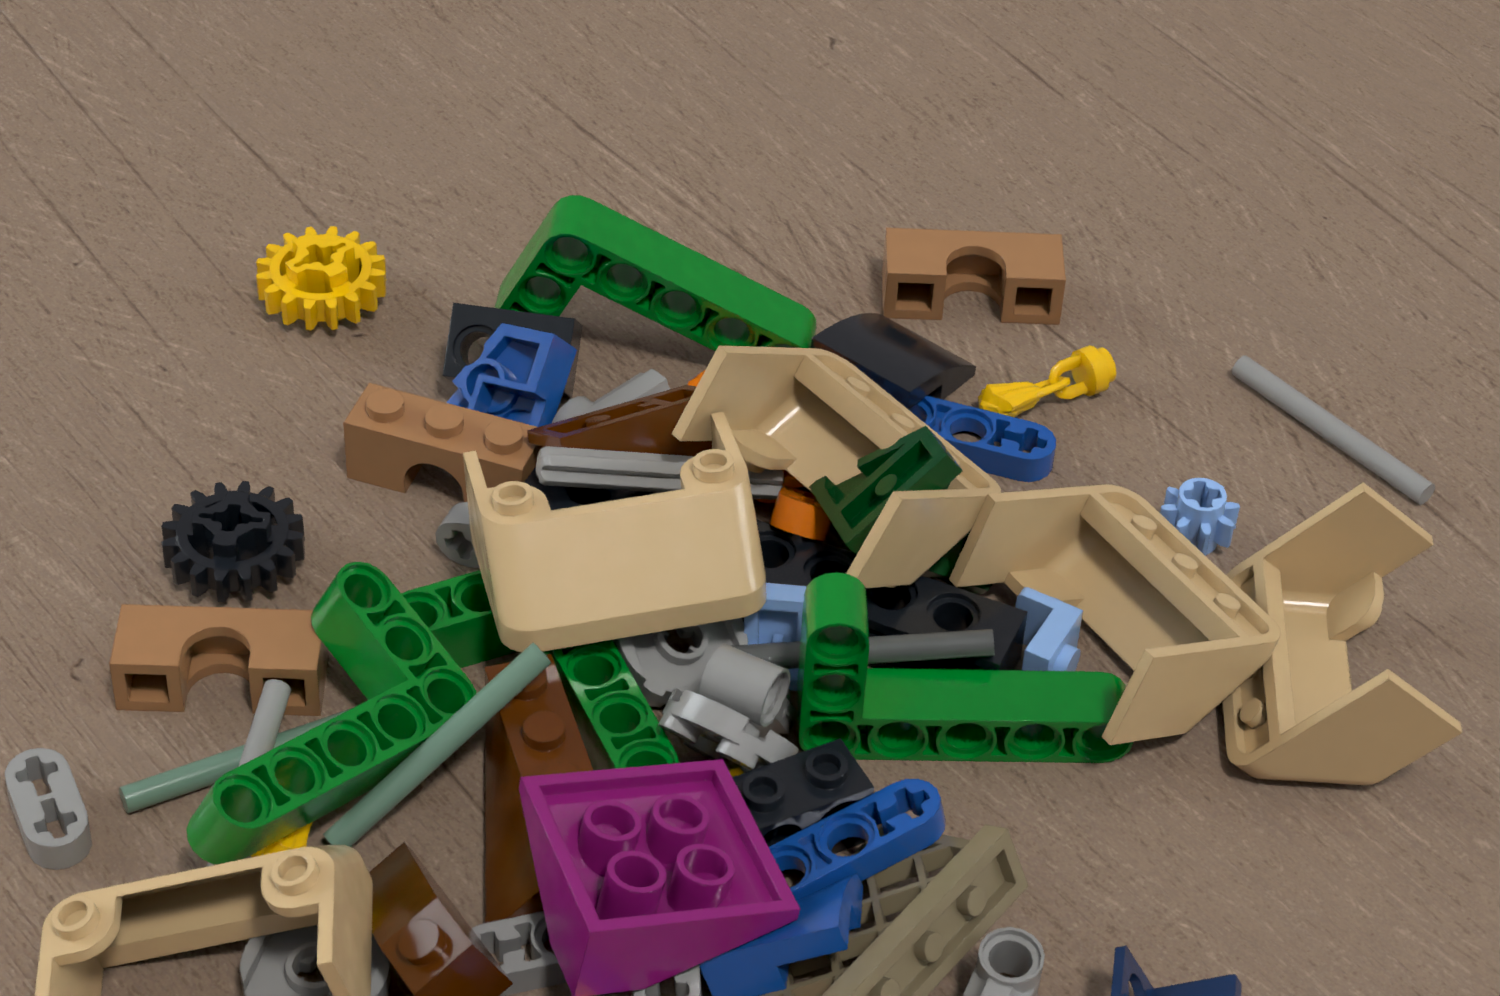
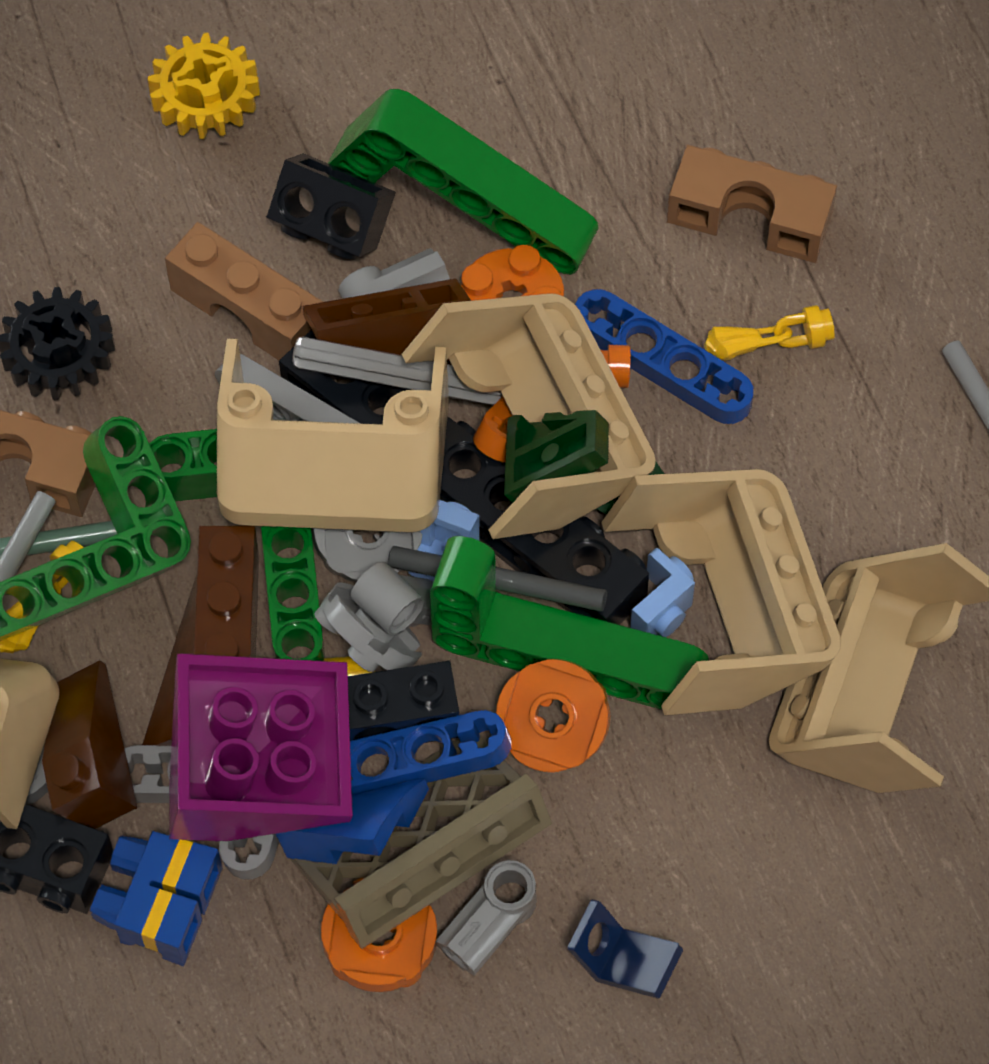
camera: 20 degrees right, 20 degrees up
(438, 747) = (144, 588): sand green bar -> none
(517, 376) = (315, 246): blue slope -> none
(895, 357) = (648, 277): black slope -> none
(1006, 753) = (582, 700): none -> orange plate
(1201, 513) = (841, 487): light blue gear -> none

